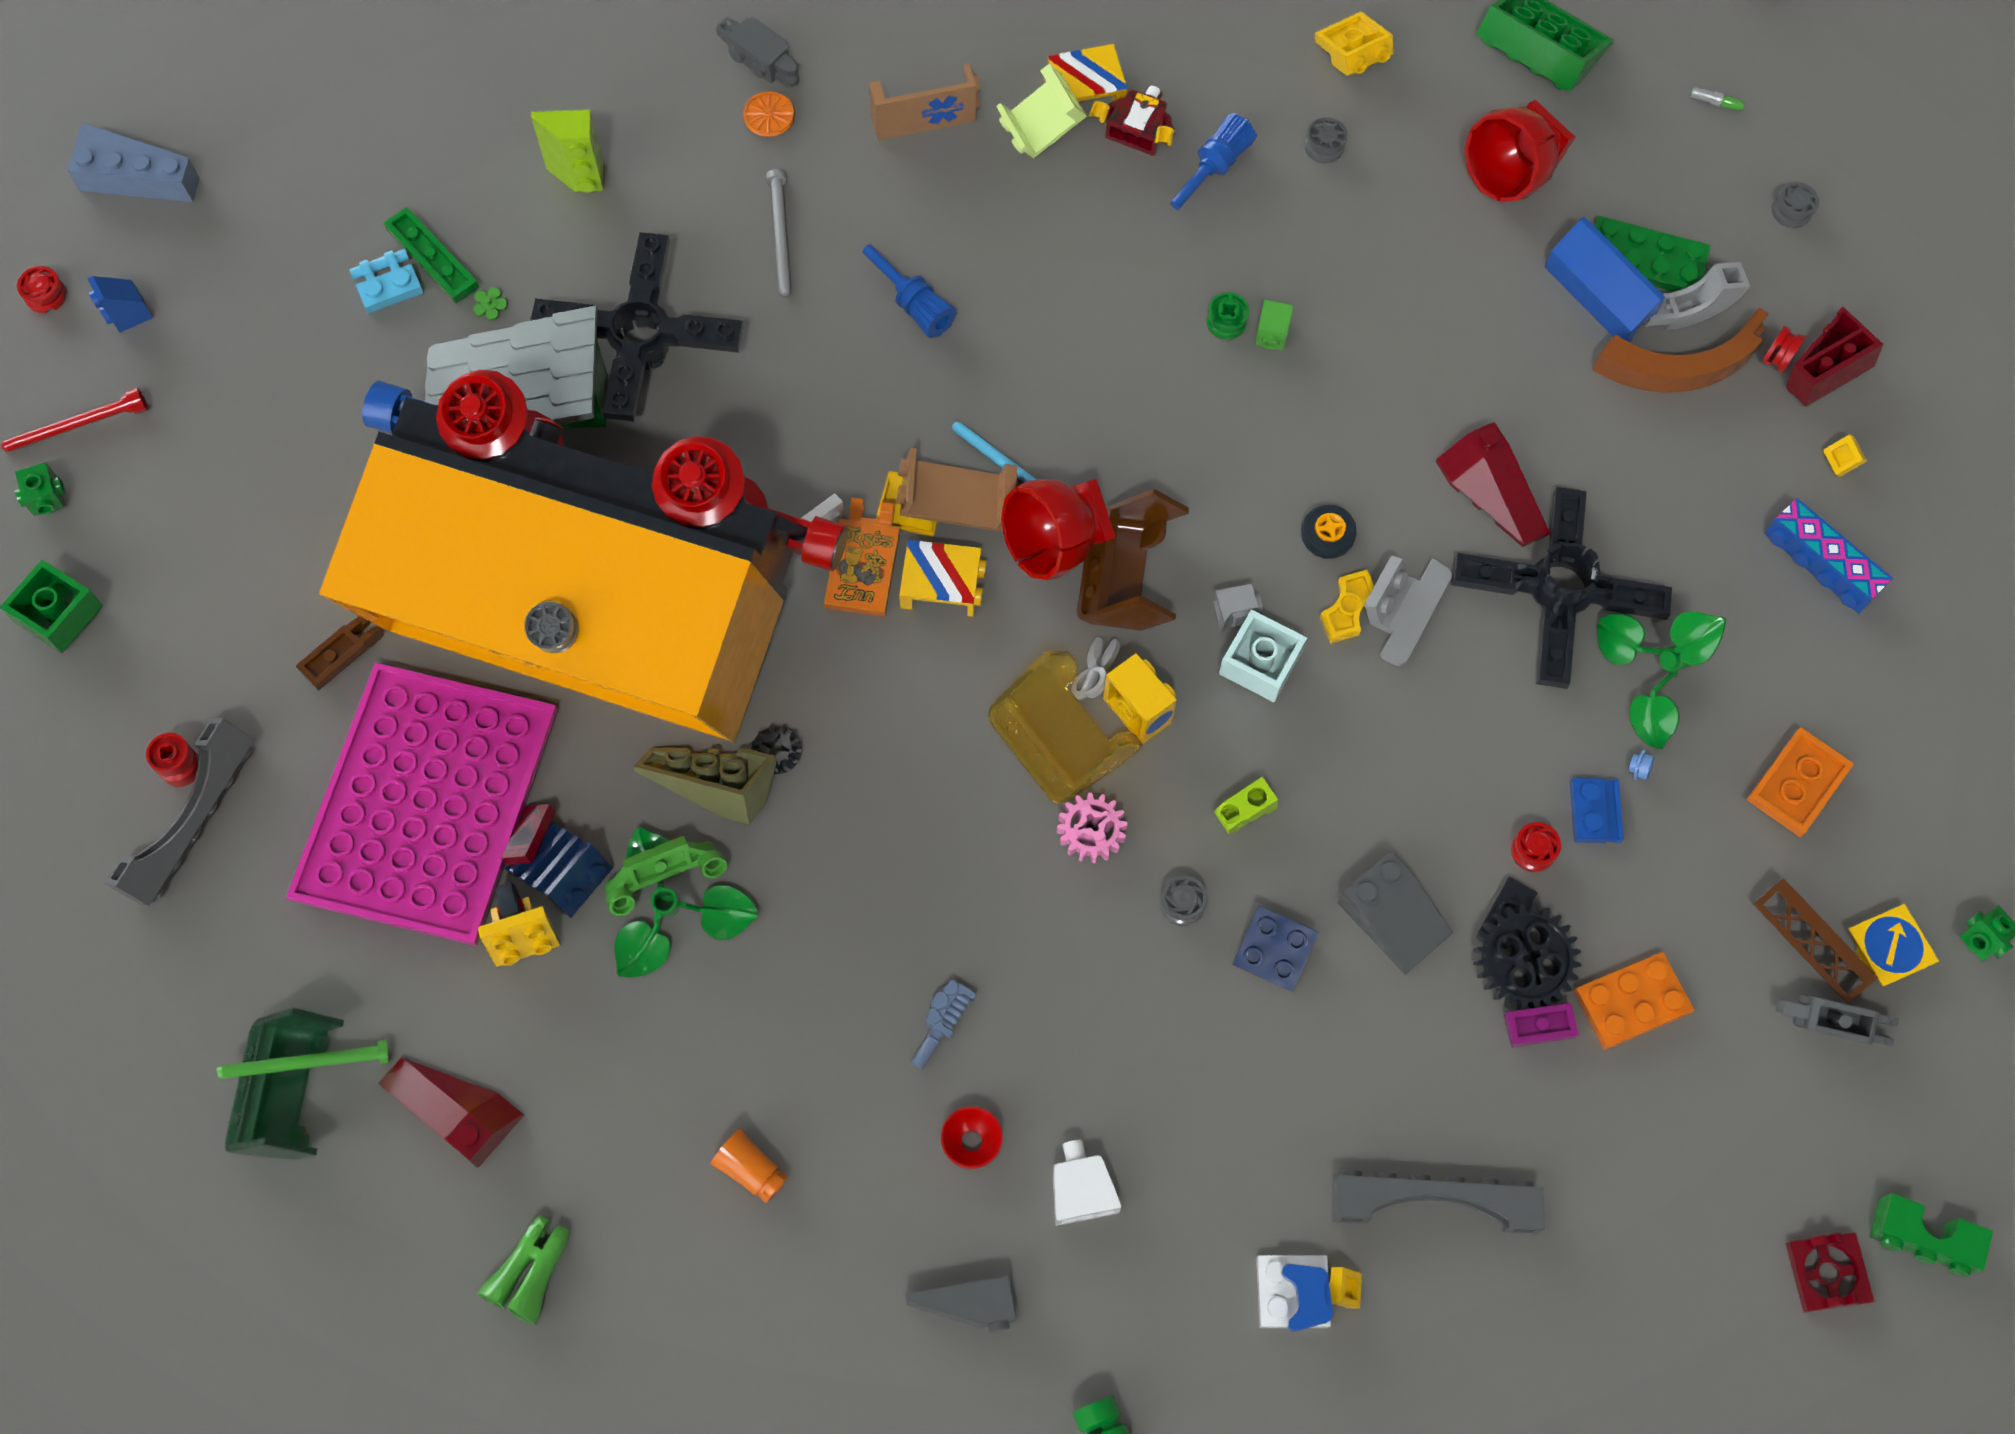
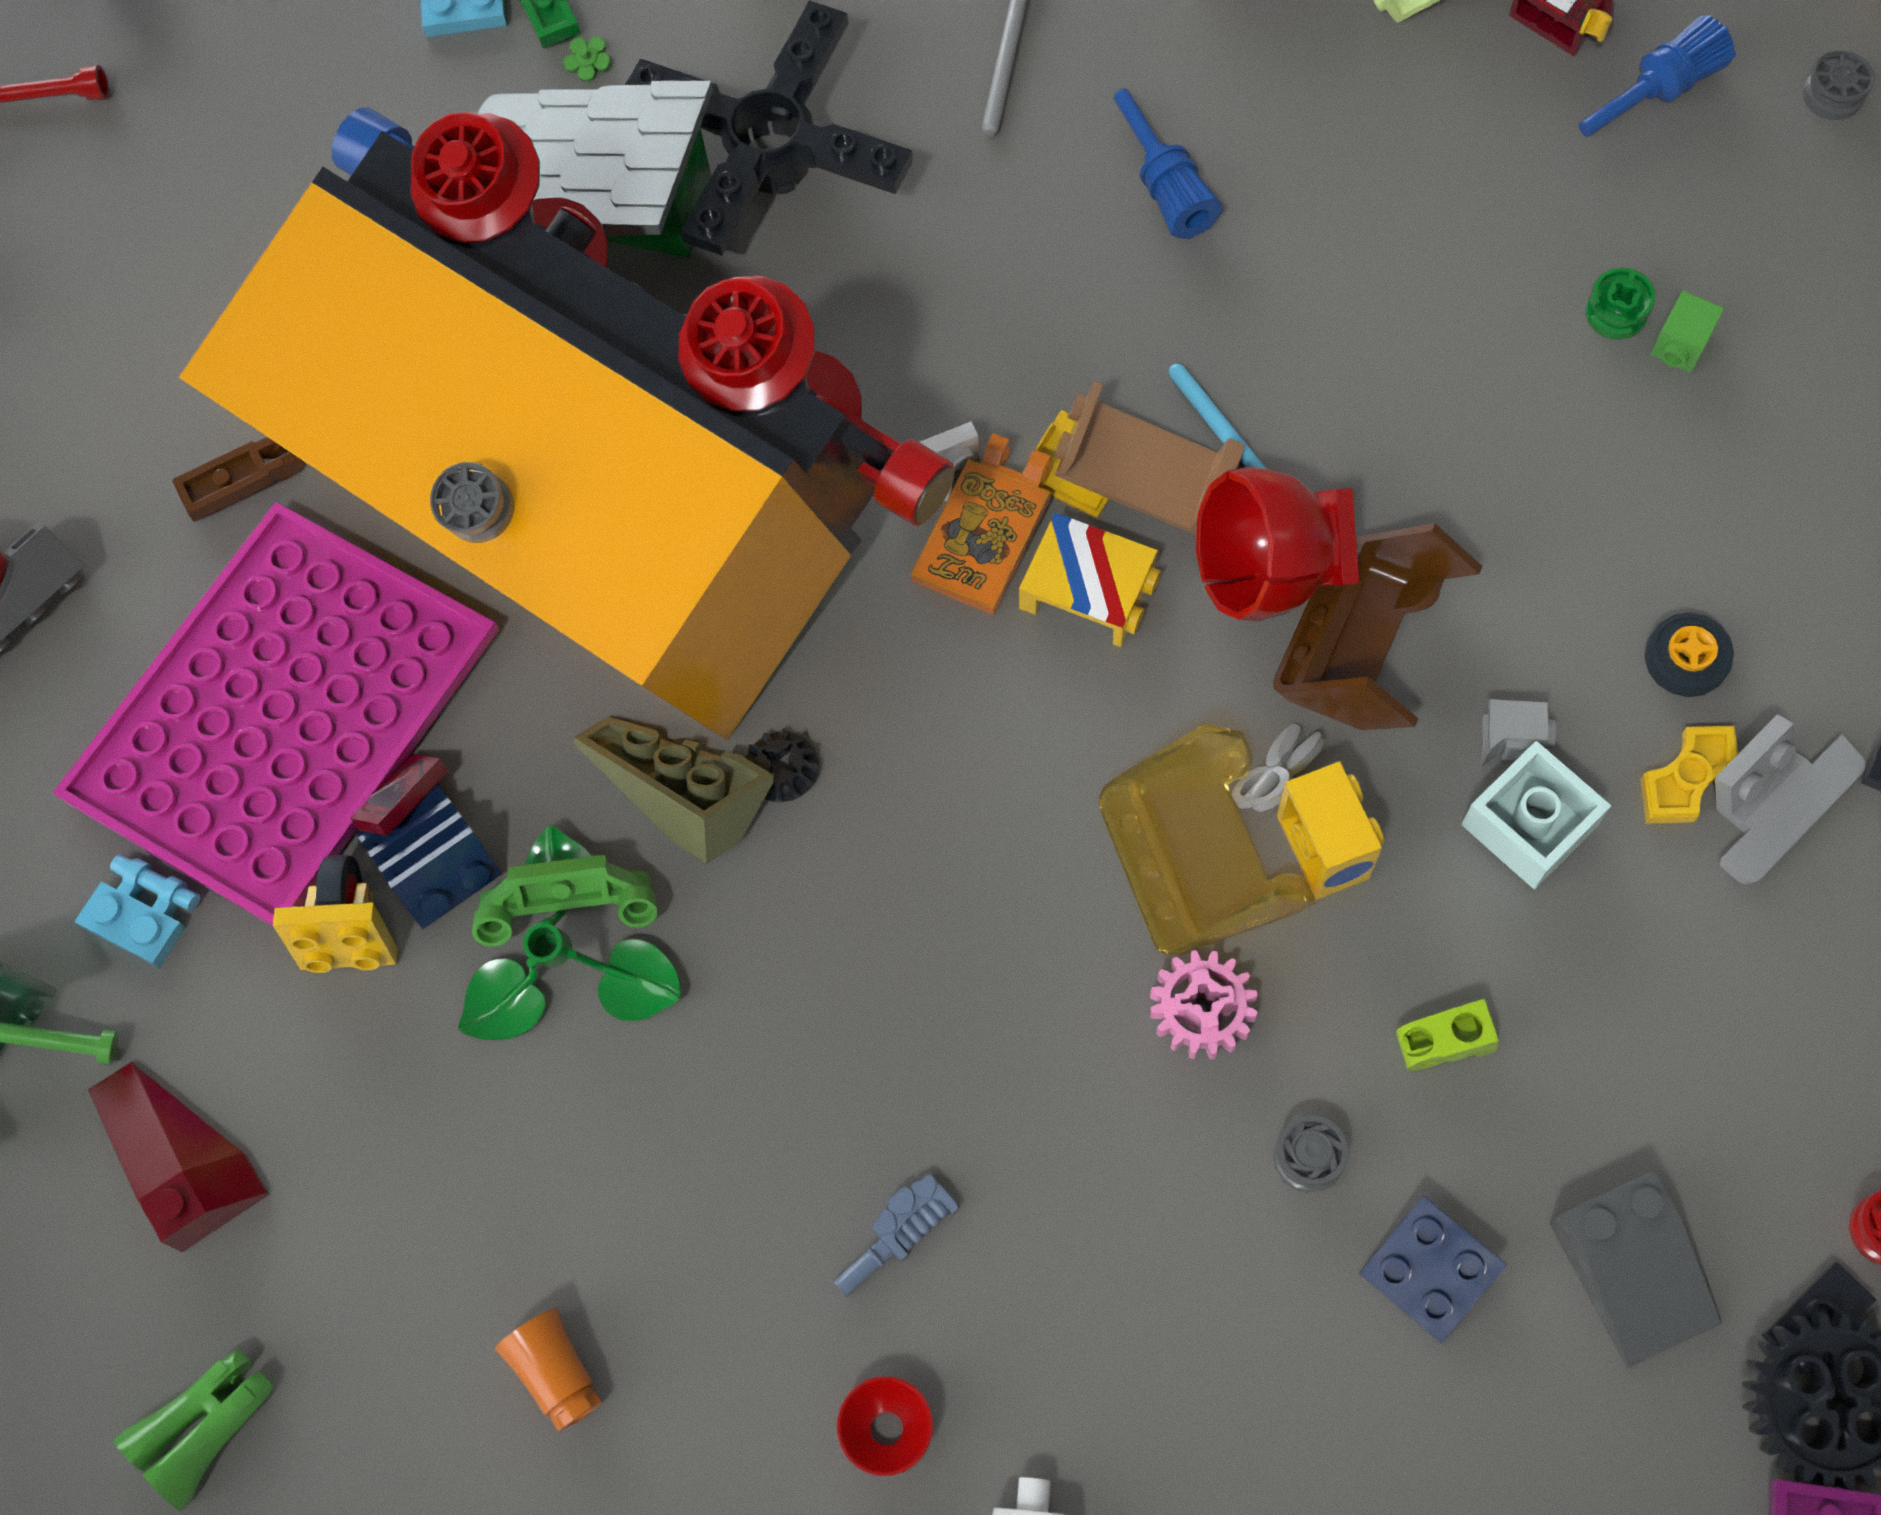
camera: 25 degrees right, 0 degrees up
(370, 968) = (132, 924): none -> medium azure plate

